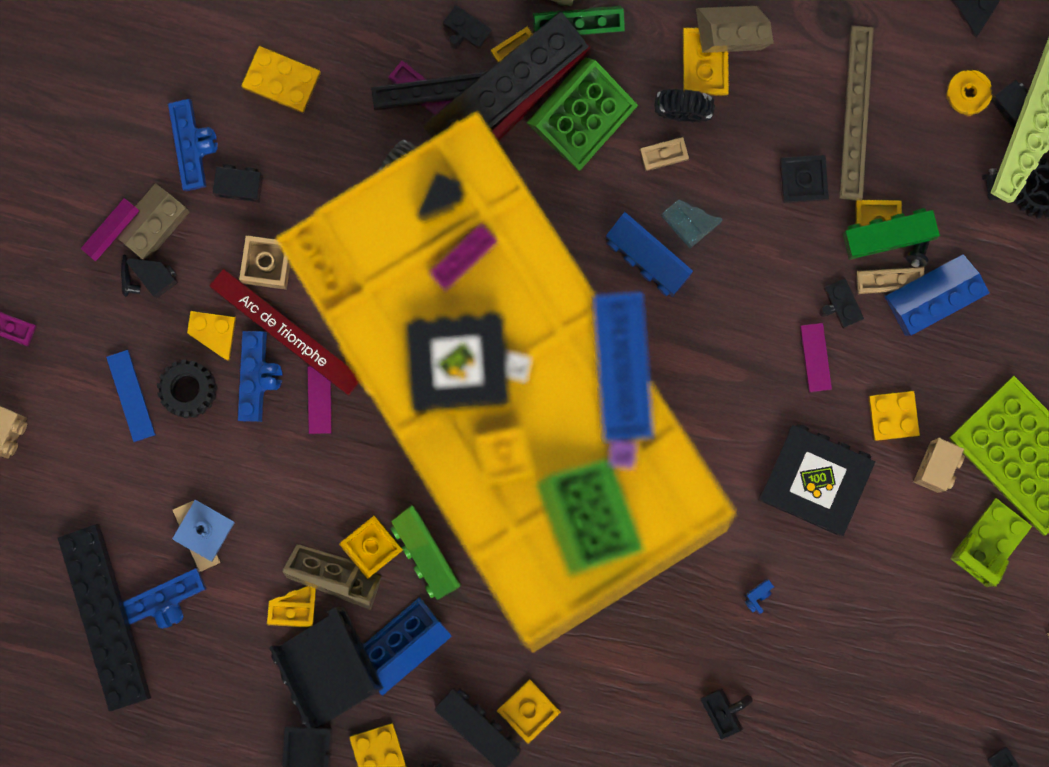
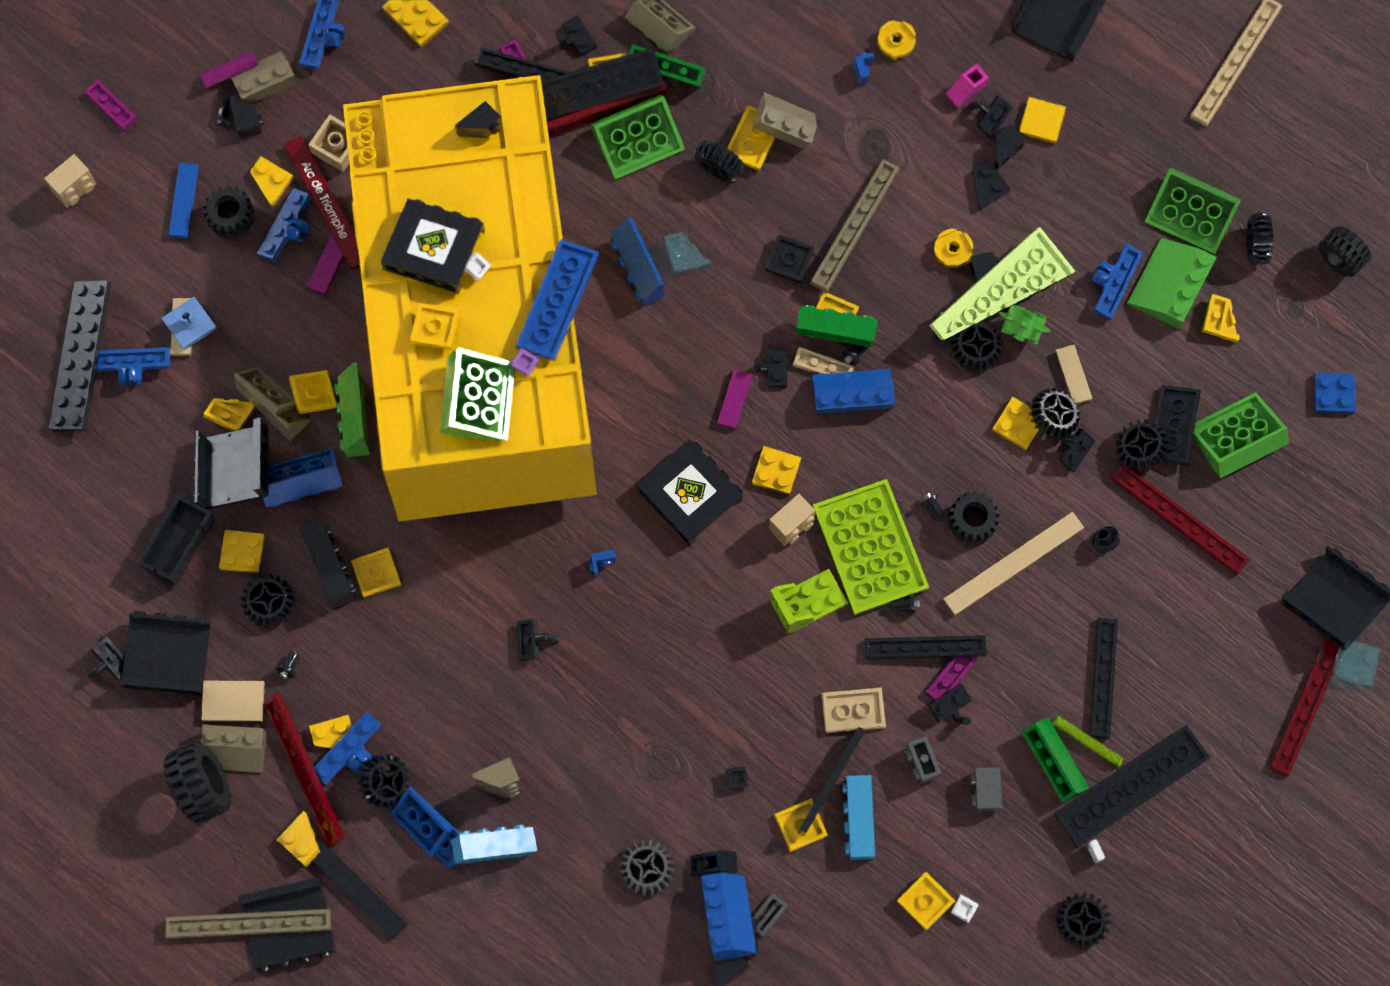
camera: 25 degrees right, 10 degrees down
(238, 184) = (344, 77): black brick -> none
(463, 257) = (476, 173): magenta tile -> none
(664, 154) = (687, 193): tan plate -> none

